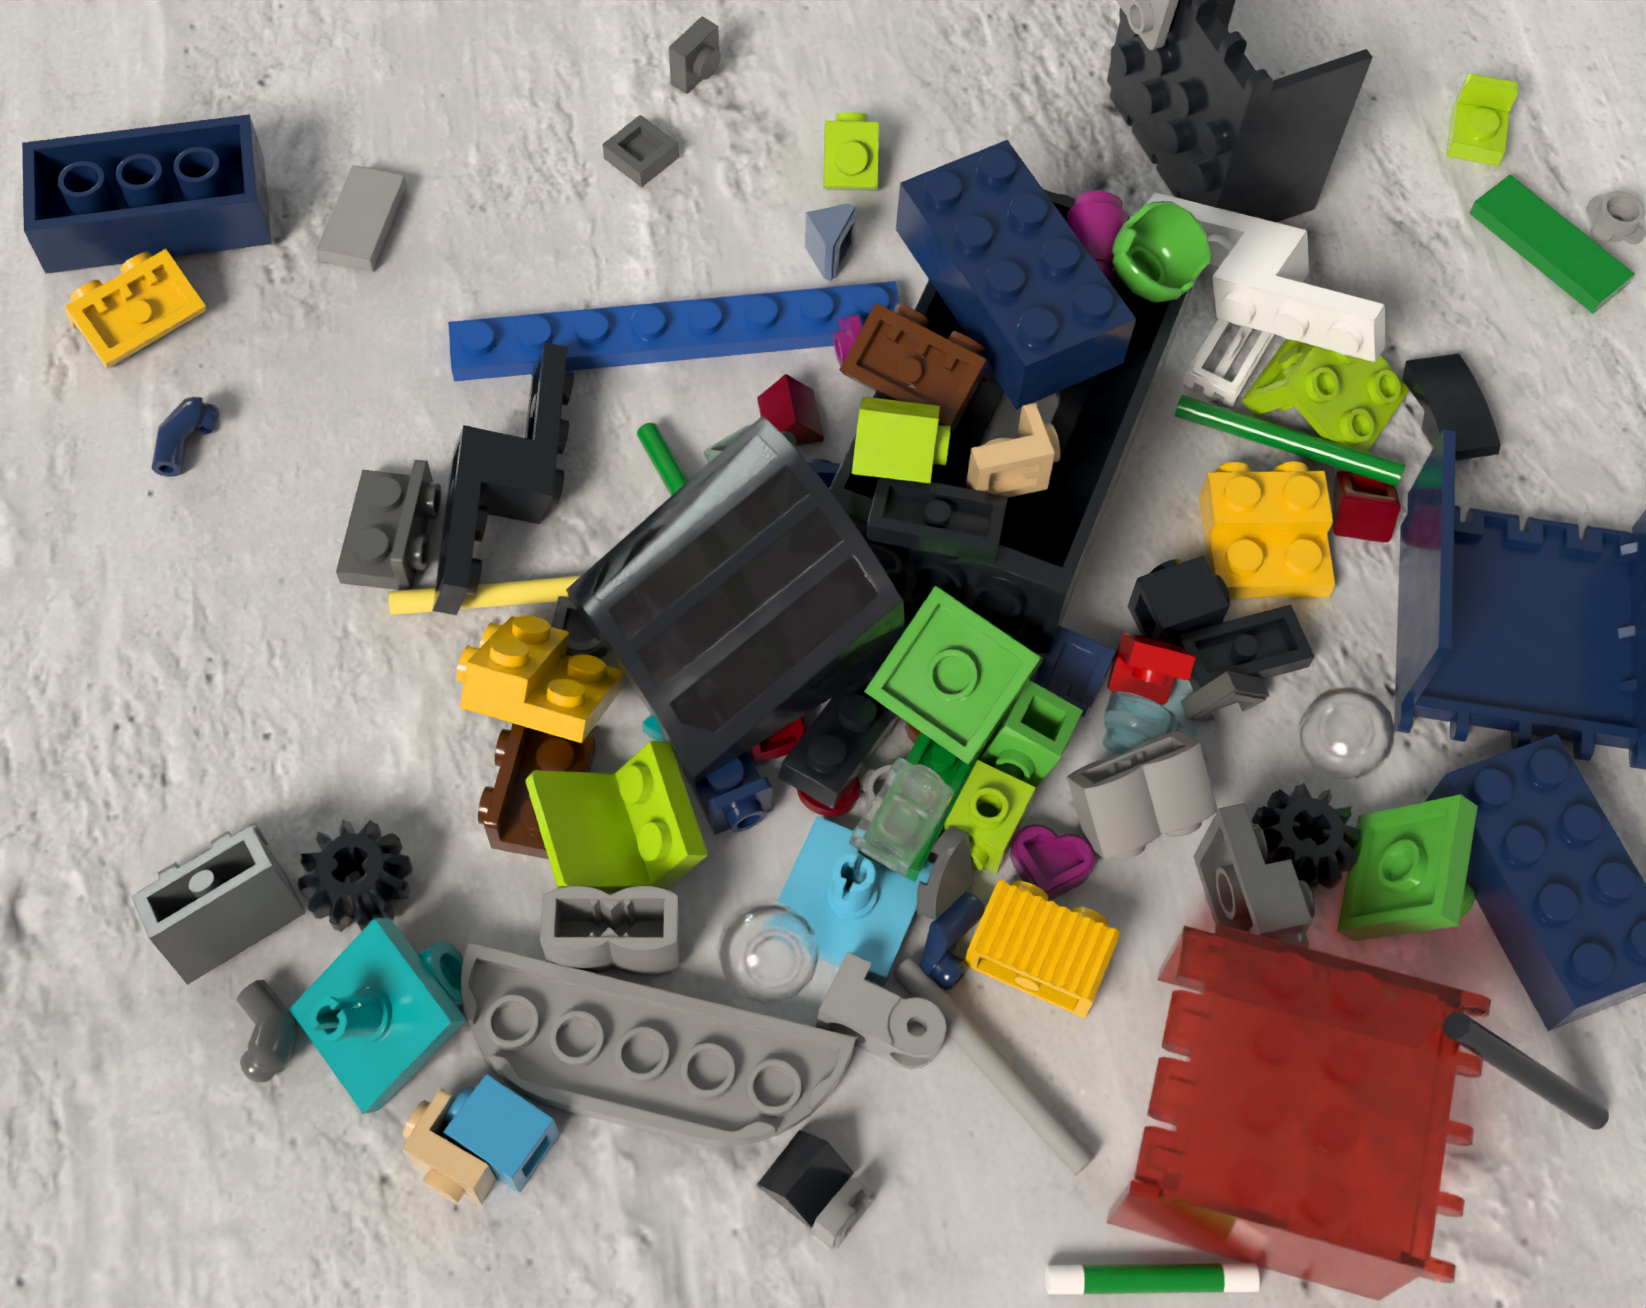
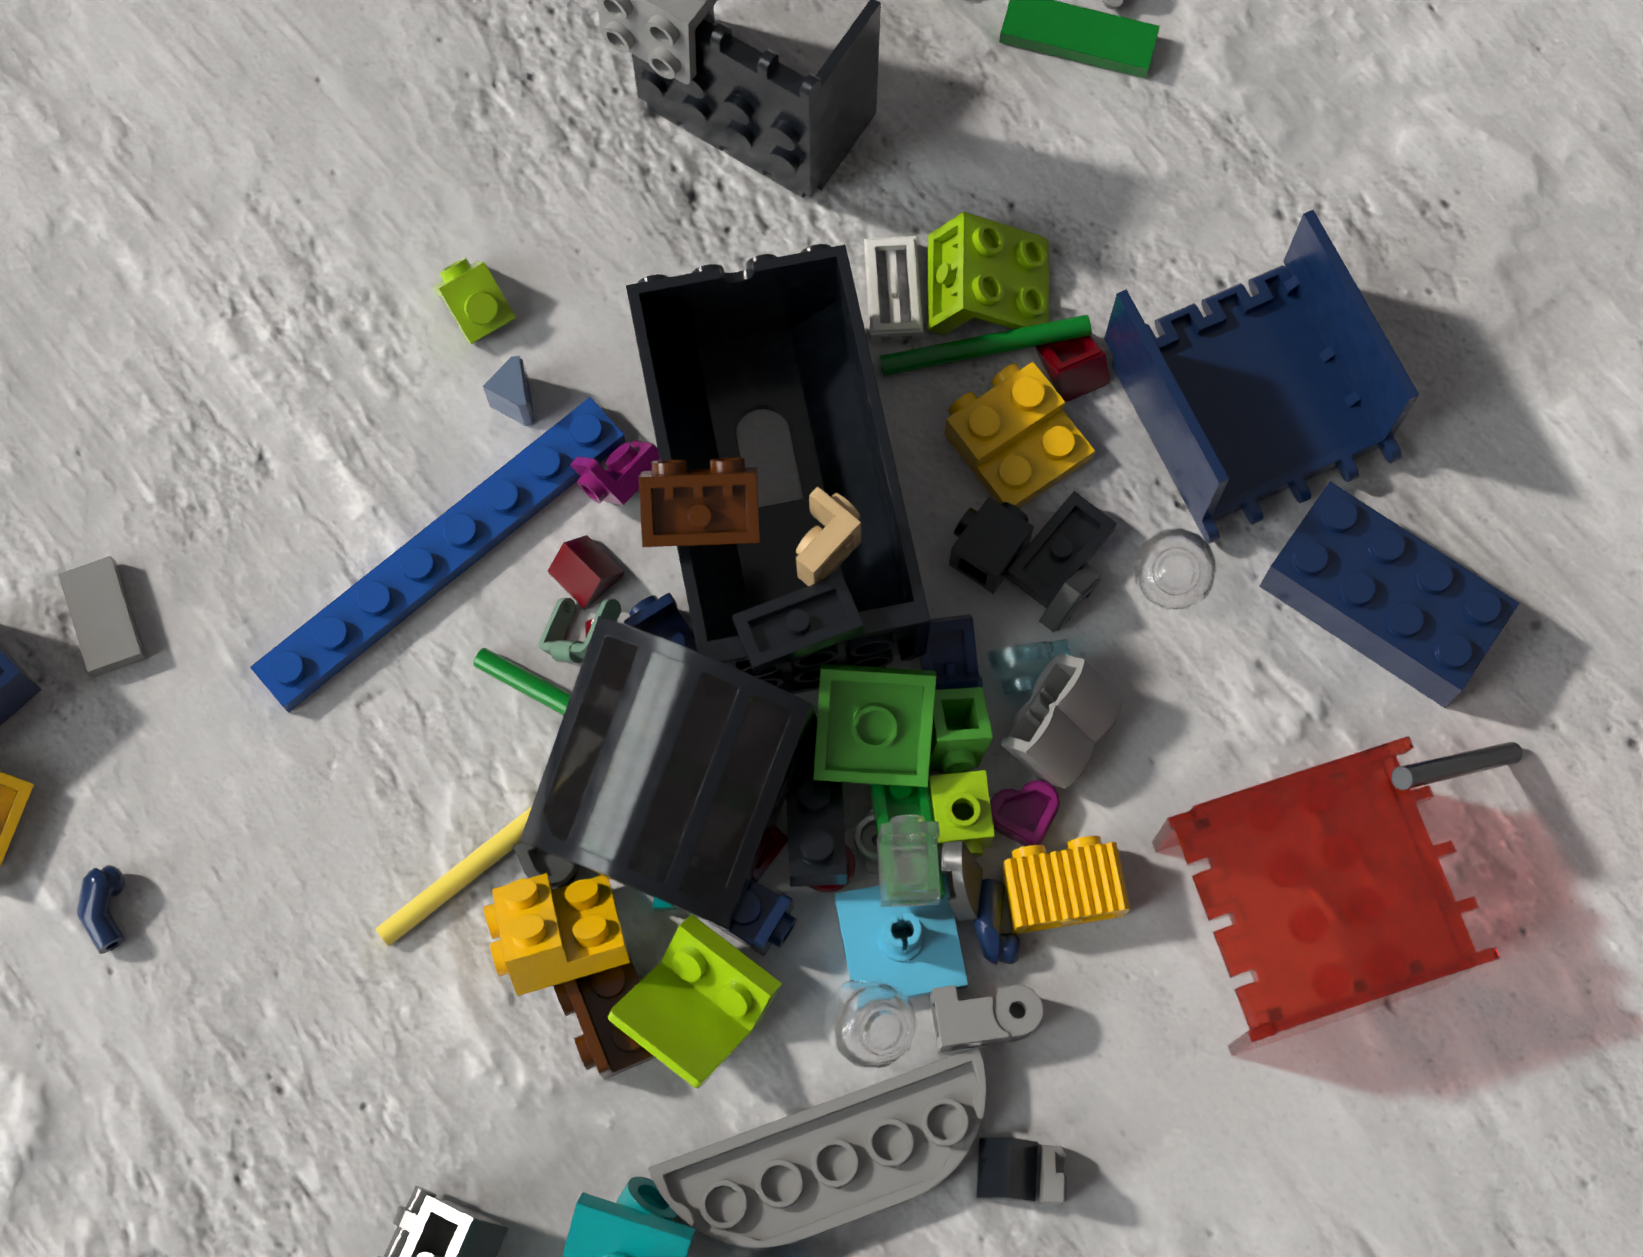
camera: 30 degrees left, 10 degrees up
(334, 891) = (509, 1188): black gear -> none
(388, 528) = (333, 876): dark grey bracket -> none
(503, 478) = (400, 778): black bracket -> none
(626, 930) = (737, 1095): light grey brick -> none
(640, 150) = (292, 403): dark grey tile -> none
(694, 55) = (279, 286): dark grey plate -> none
(899, 440) = (732, 582): lime brick -> none
(998, 1069) = (1085, 996): light grey bar -> none
(1013, 273) = (720, 376): dark blue brick -> none
(1096, 223) = (762, 300): magenta cone -> none
(1148, 667) = (1003, 611): red bracket -> none
(1152, 1278) = (1288, 1076): green bar -> none
(1160, 251) = (824, 286): bright green hair -> none
(1244, 889) = (1199, 762): dark grey plate -> none
(1264, 287) = (886, 221): white bracket -> none
(1328, 841) = (1216, 686): black gear -> none
(1410, 870) = (1286, 656): bright green tile -> none
(1453, 403) = (1092, 235): black slope -> none

